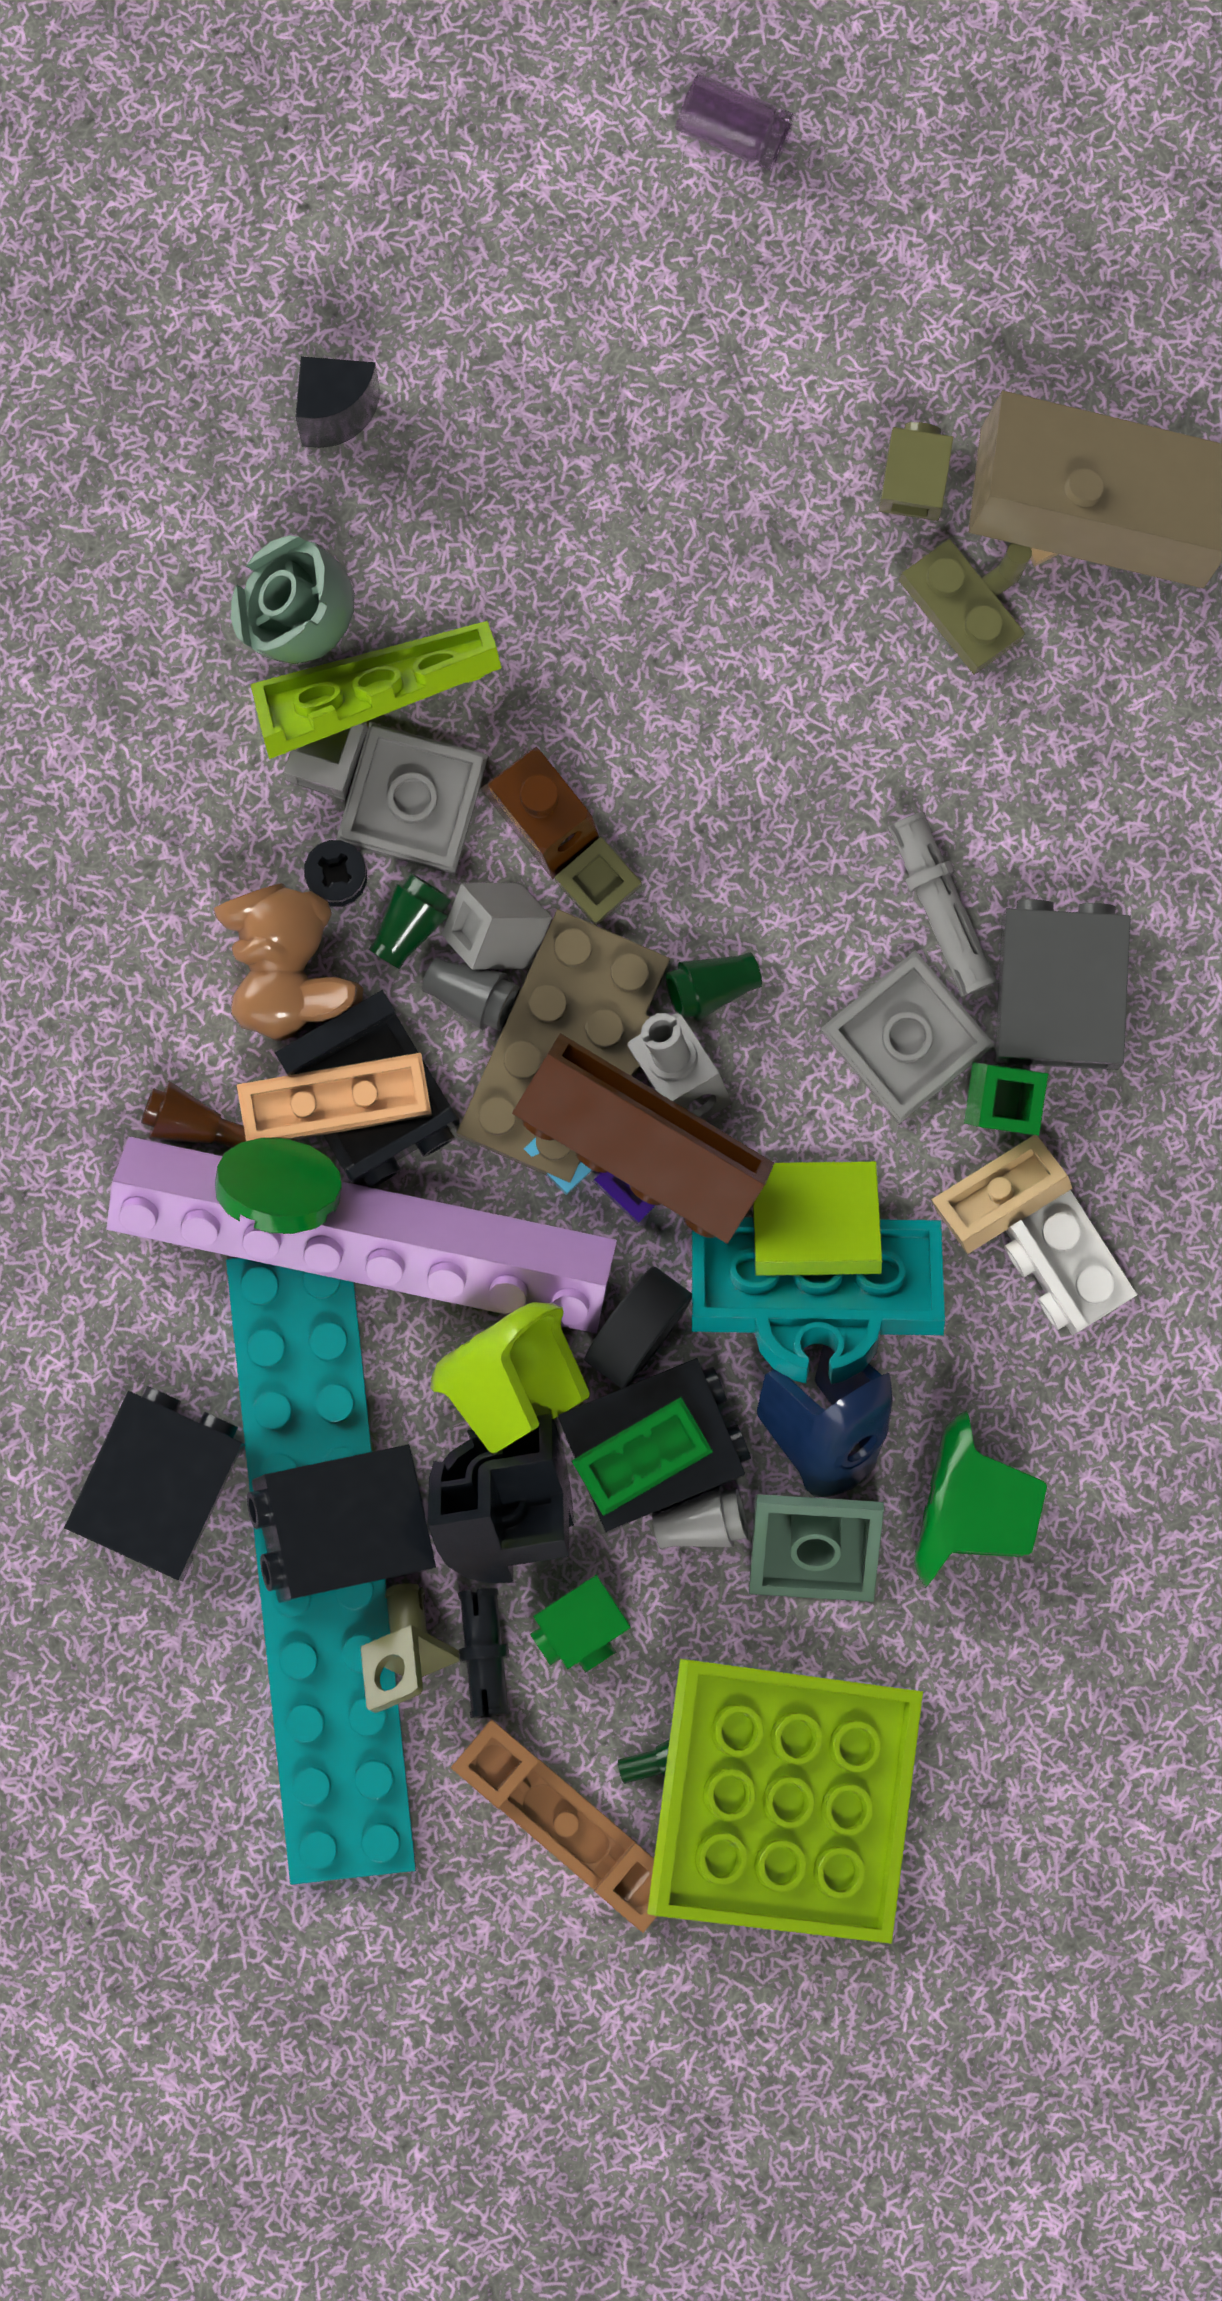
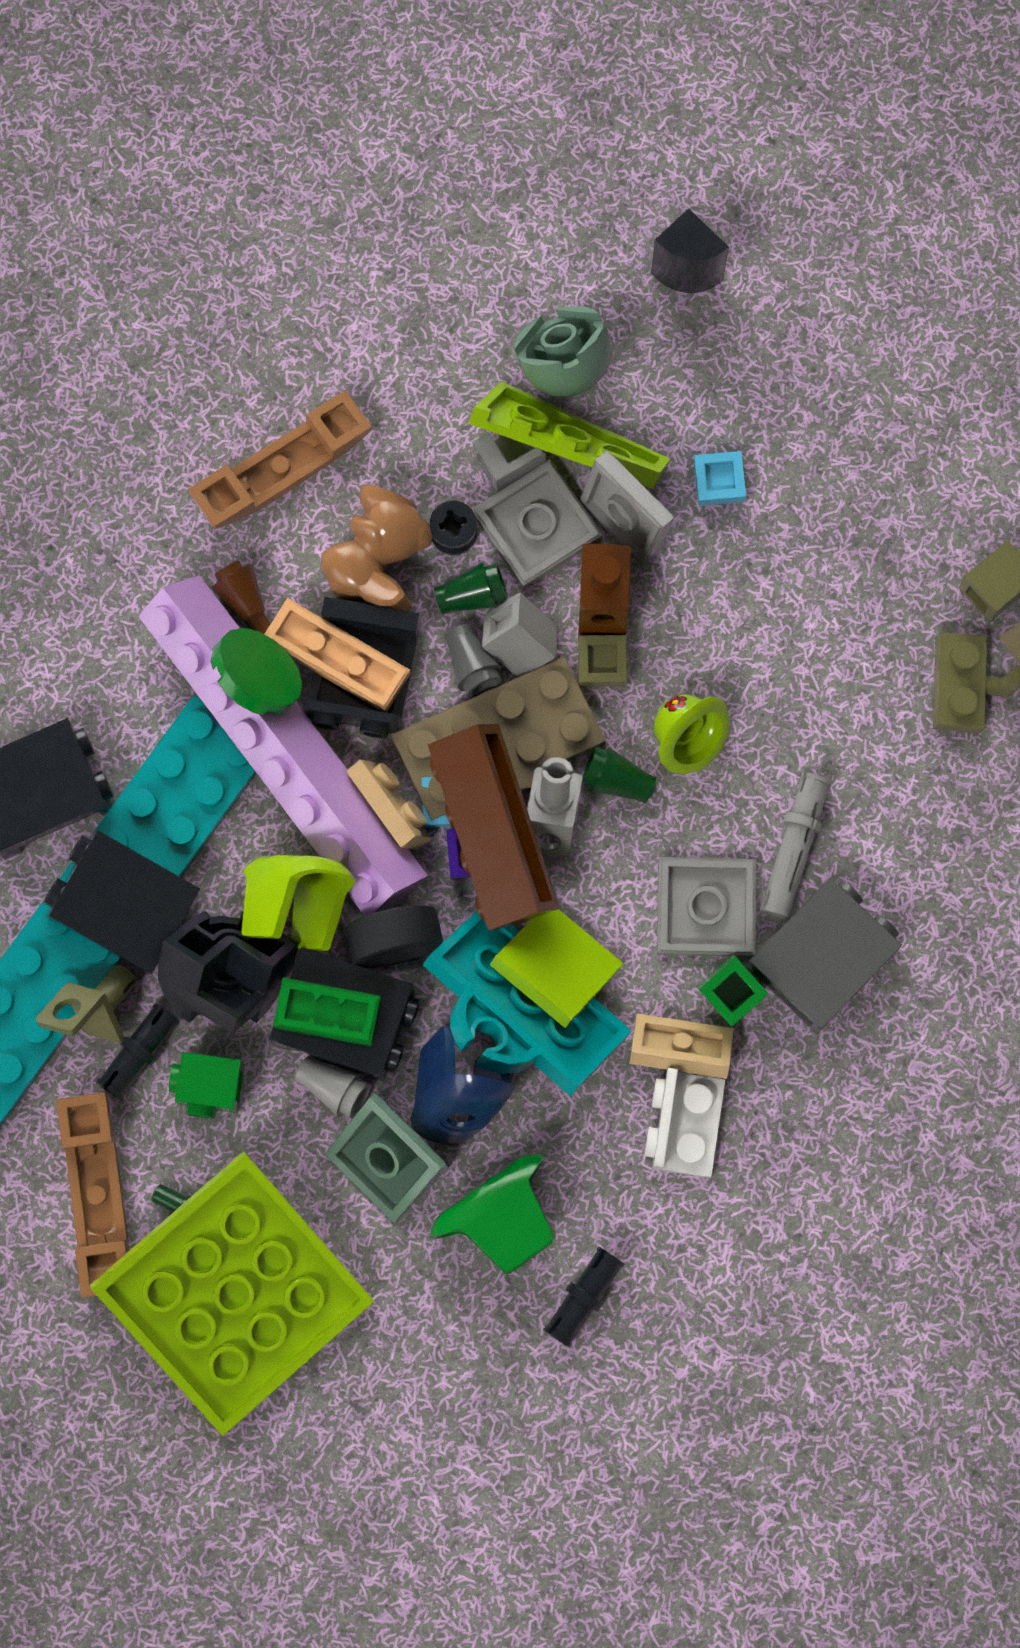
camera: 45 degrees right, 5 degrees down
(107, 953) = (282, 465): none -> medium nougat slope
(491, 1194) = (401, 818): none -> tan plate
(494, 711) = (625, 508): none -> light grey tile
(554, 600) = (719, 478): none -> medium azure plate
(746, 879) = (691, 732): none -> lime hat
(1116, 1513) = (584, 1297): none -> black pin

